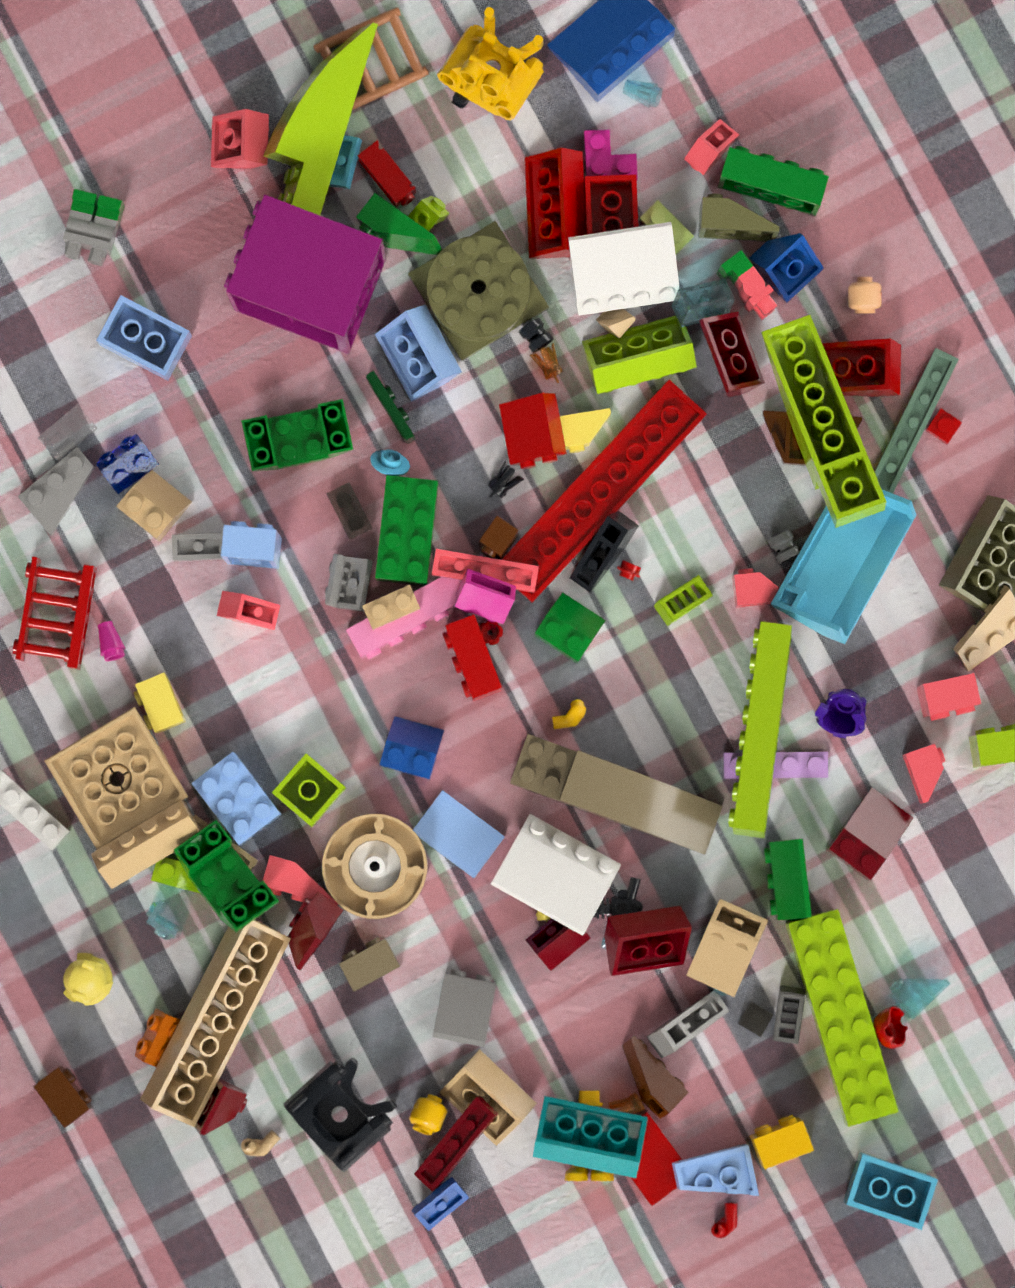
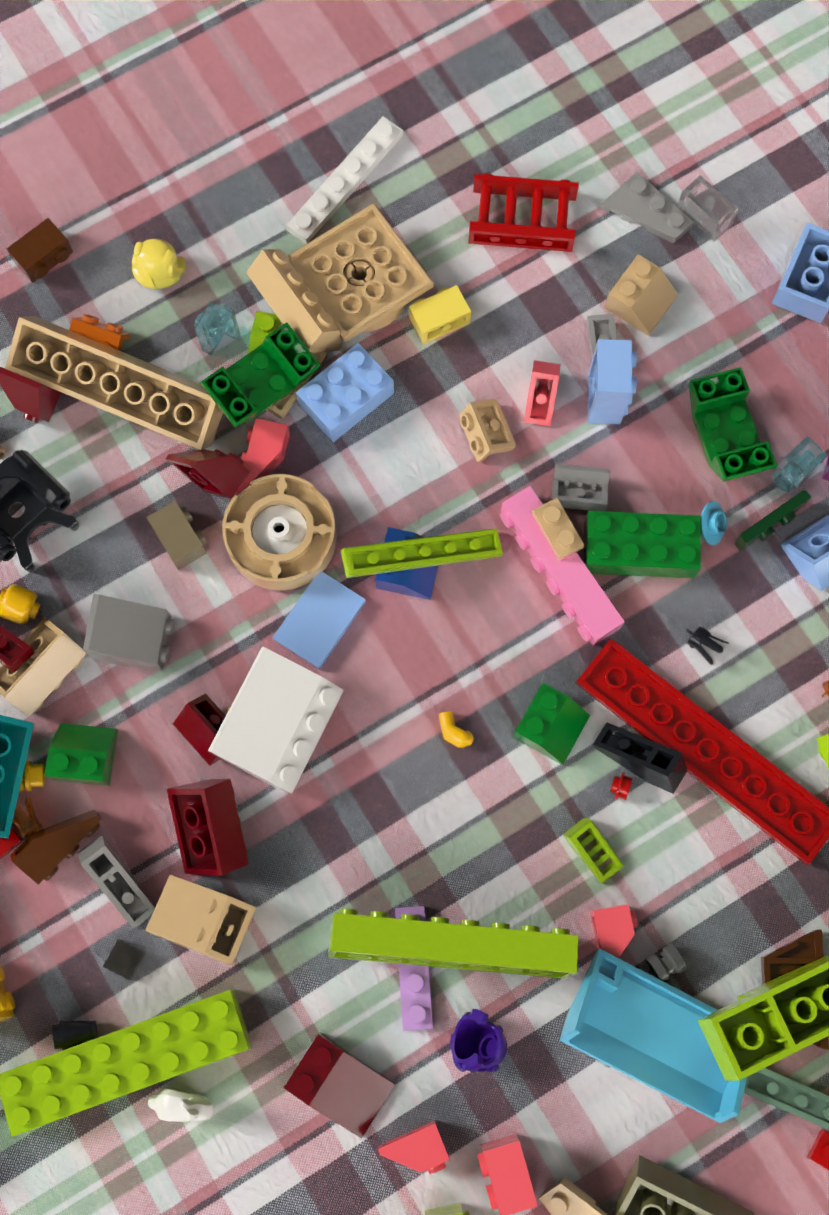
camera: 90 degrees right, 10 degrees down
(110, 642) = (497, 265): dark pink cone -> none
(126, 463) = (682, 269): clear blue bracket -> none
(281, 666) = (486, 429): none -> tan bracket
(309, 790) = (357, 461): lime brick -> none
(343, 378) = (798, 465): none -> clear light blue brick
(349, 511) = (656, 486): clear smoke plate -> none
(406, 734) = (421, 552): none -> lime tile
(455, 564) = (607, 624): coral plate -> none
(472, 658) = (509, 617): red brick -> none
(485, 596) = (578, 623): brick -> none
(495, 628) = (544, 634): red plate -> none
(498, 538) = (643, 637): reddish brown brick -> none
(533, 430) = (768, 668): red brick -> none
(571, 1054) = (82, 754): none -> green slope
(582, 428) = (775, 725): light yellow slope -> none
(616, 794) = (369, 786): dark tan slope -> none
(623, 903) = (248, 799): black piece -> none
(787, 879) = (281, 987): green slope -> none
(795, 993) = (148, 1002): dark grey slope -> none
(816, 1063) = (72, 1033): none -> black cone
(880, 971) = (180, 1106): none -> white animal
(889, 1027) = (111, 1121): red hair -> none
(916, 994) = (154, 1153): clear light blue slope -> none

